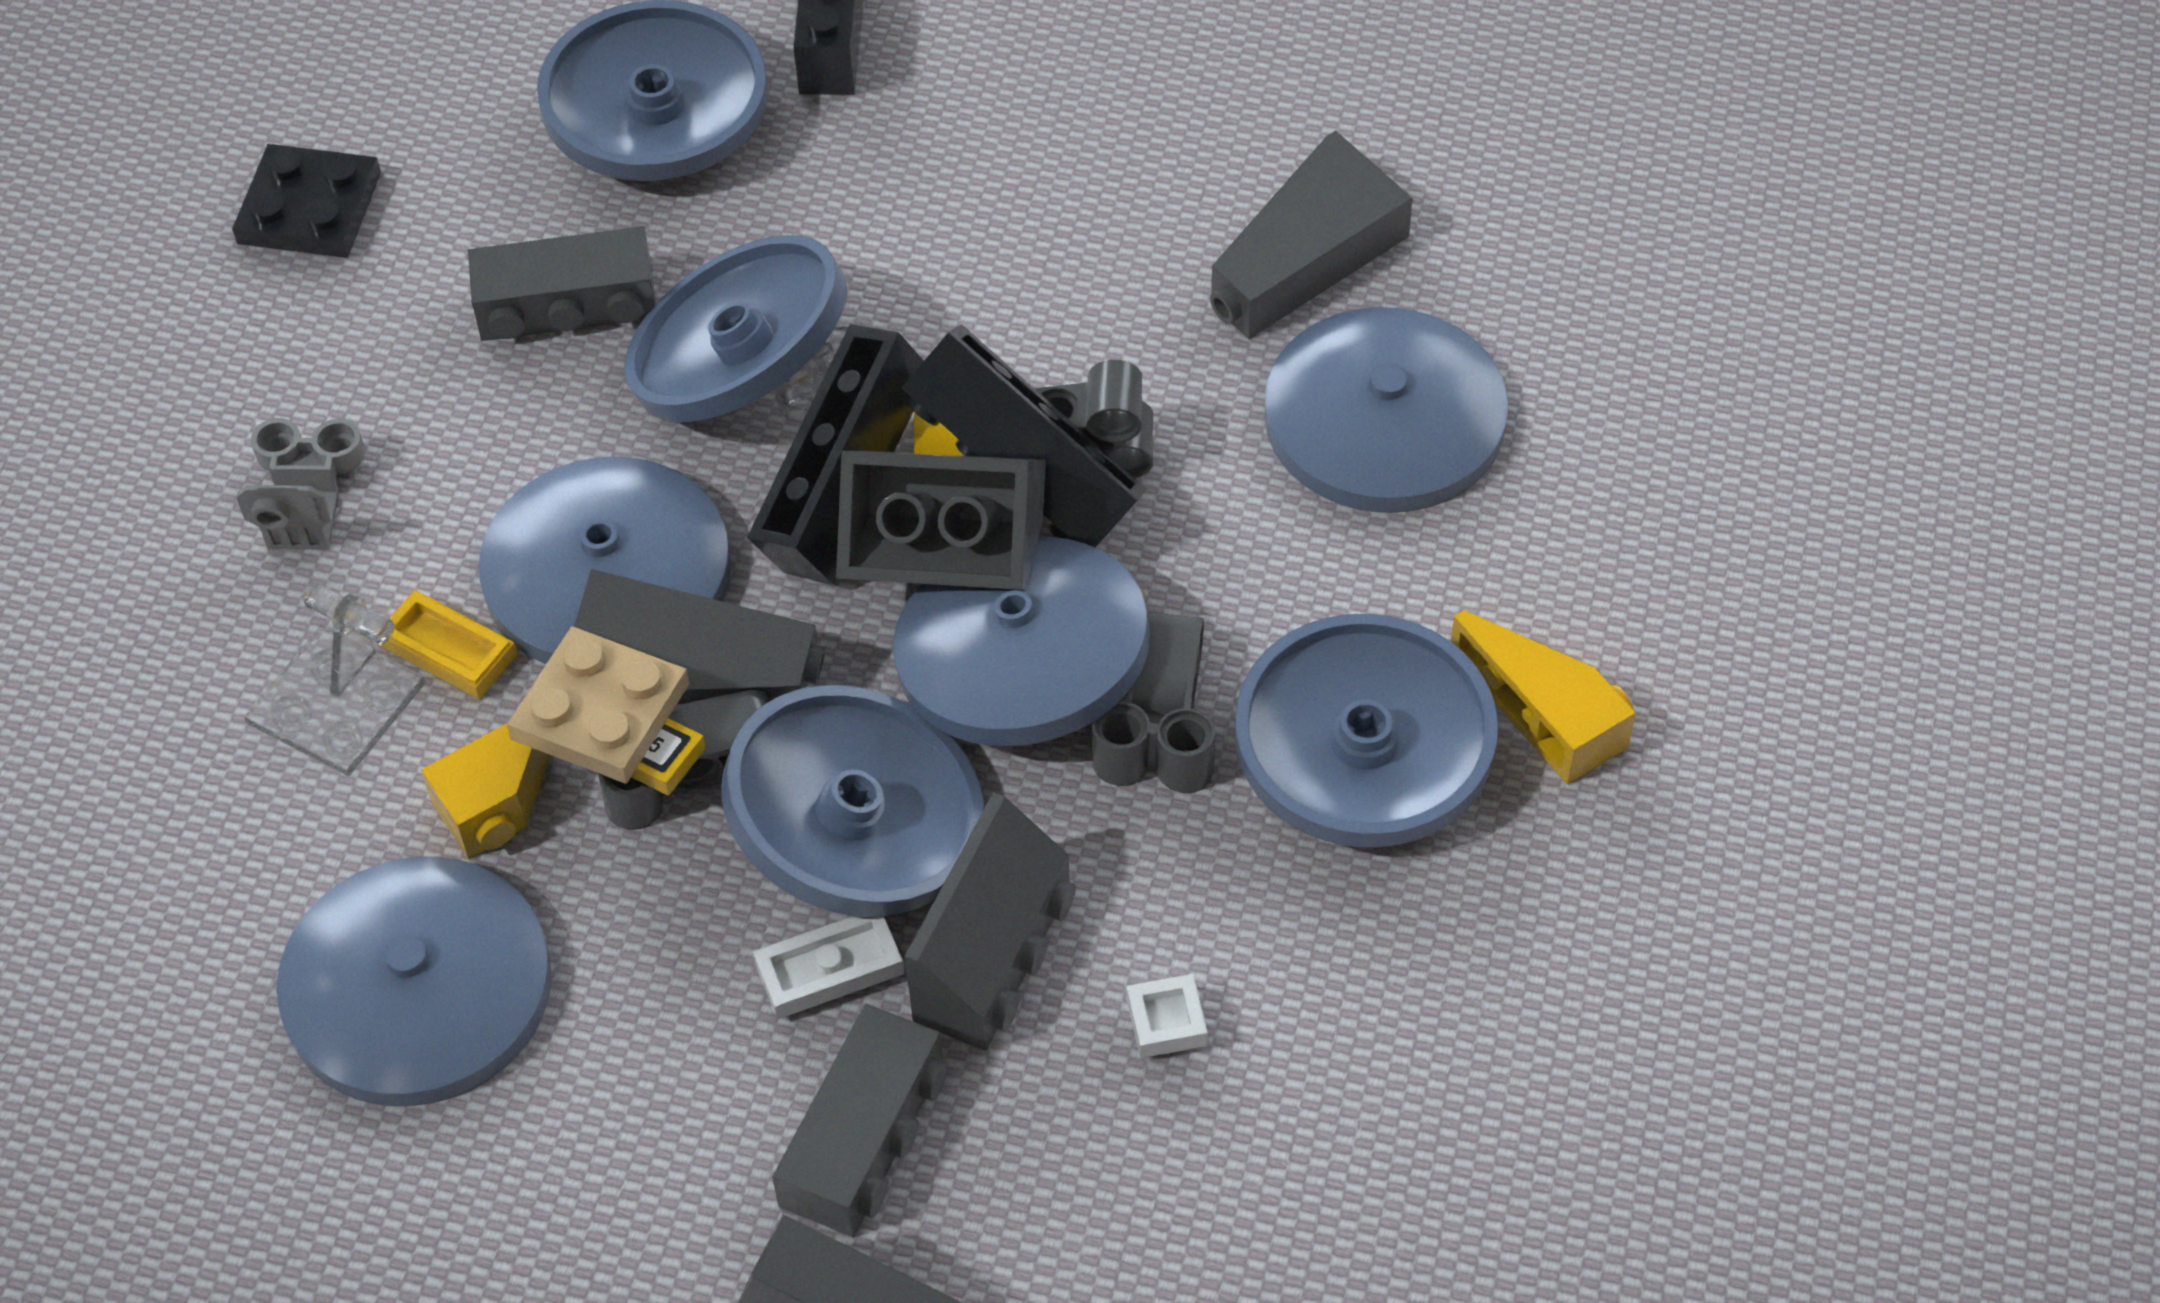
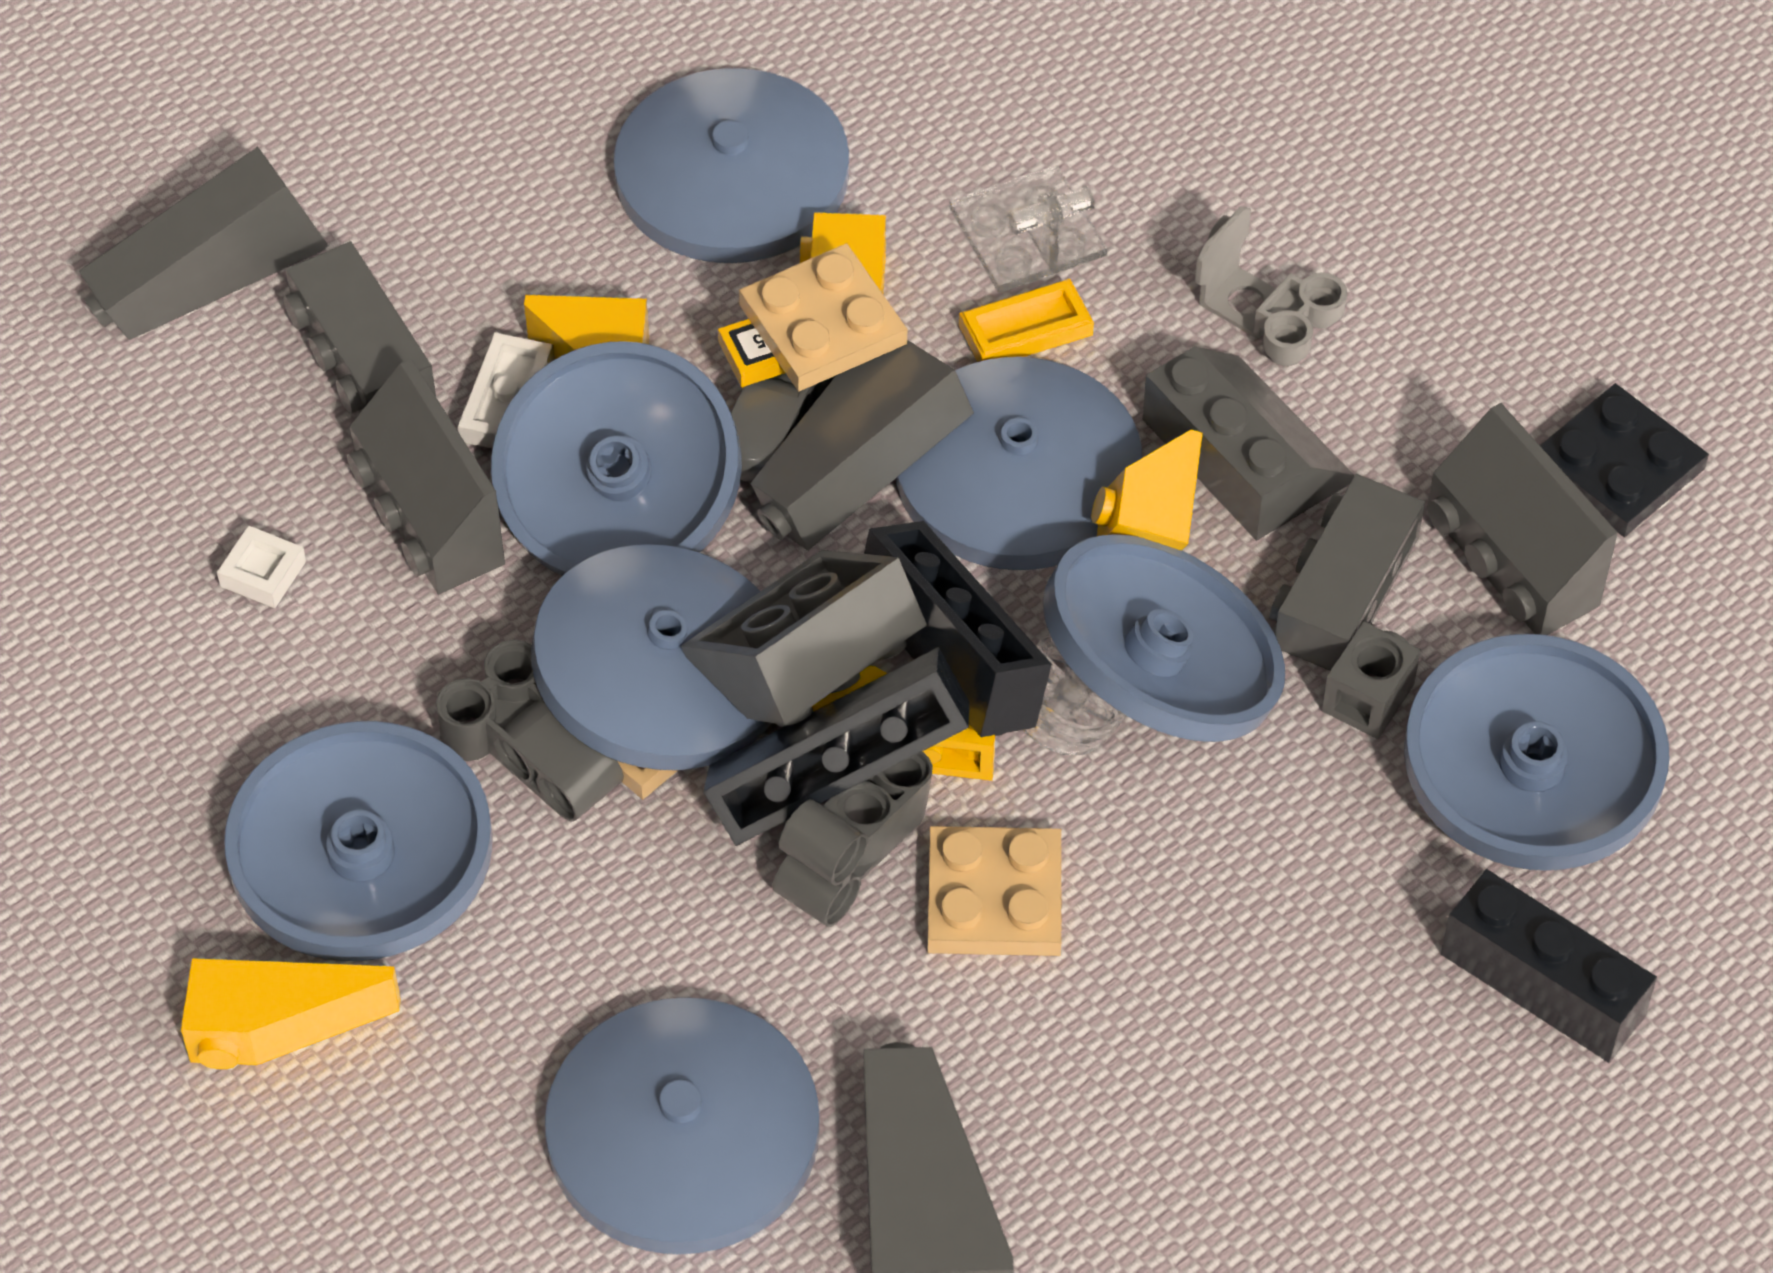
camera: 125 degrees right, 0 degrees up
(440, 190) = (1522, 524): none -> dark grey slope
(473, 420) = (1252, 444): none -> dark grey slope
(589, 424) = (1153, 495): none -> yellow slope
(664, 211) = (1365, 700): none -> dark grey brick
(720, 923) = (585, 321): none -> yellow slope
(1039, 336) = (995, 891): none -> tan plate

